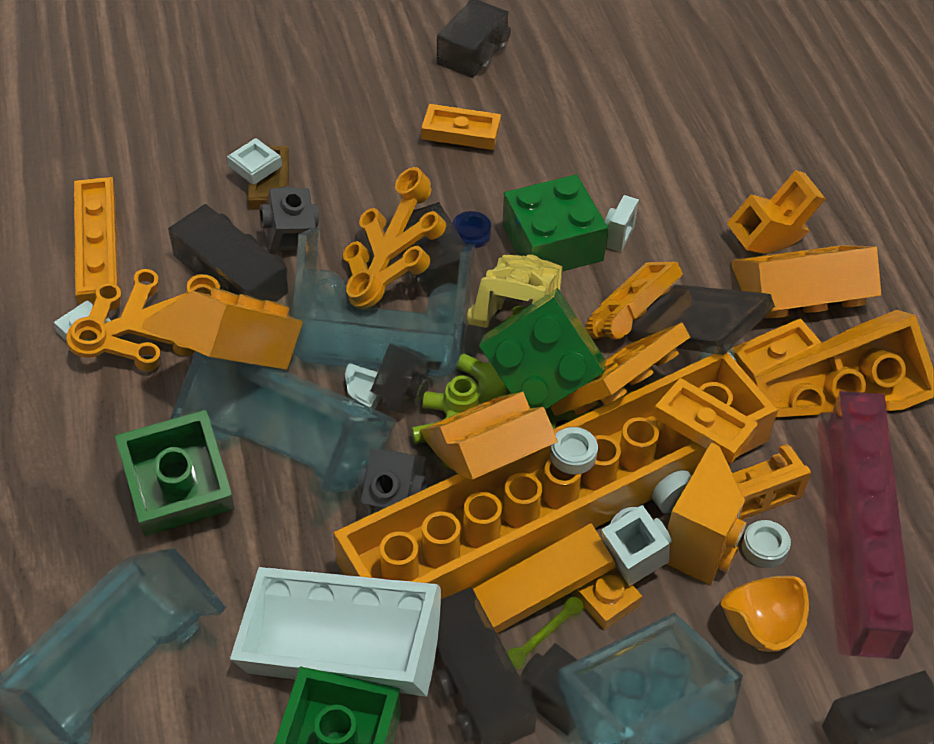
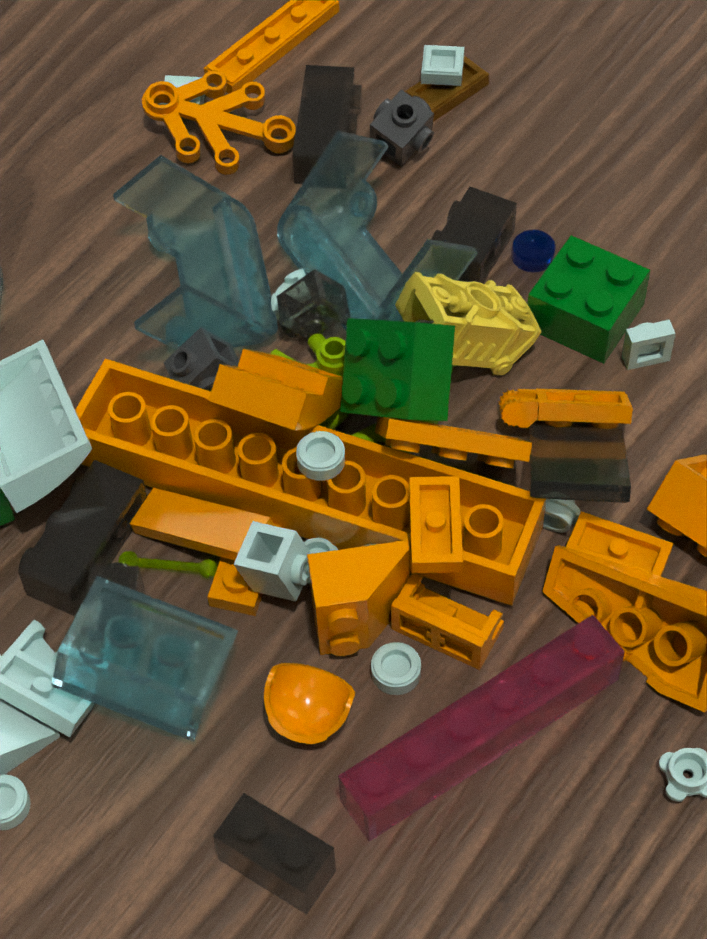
camera: 55 degrees right, 5 degrees up
(175, 472) = (83, 235): green brick -> none
(229, 327) = (225, 168): light orange slope -> none
(368, 285) = (389, 222): light orange plant -> none
(461, 126) = (640, 164): light orange plate -> none

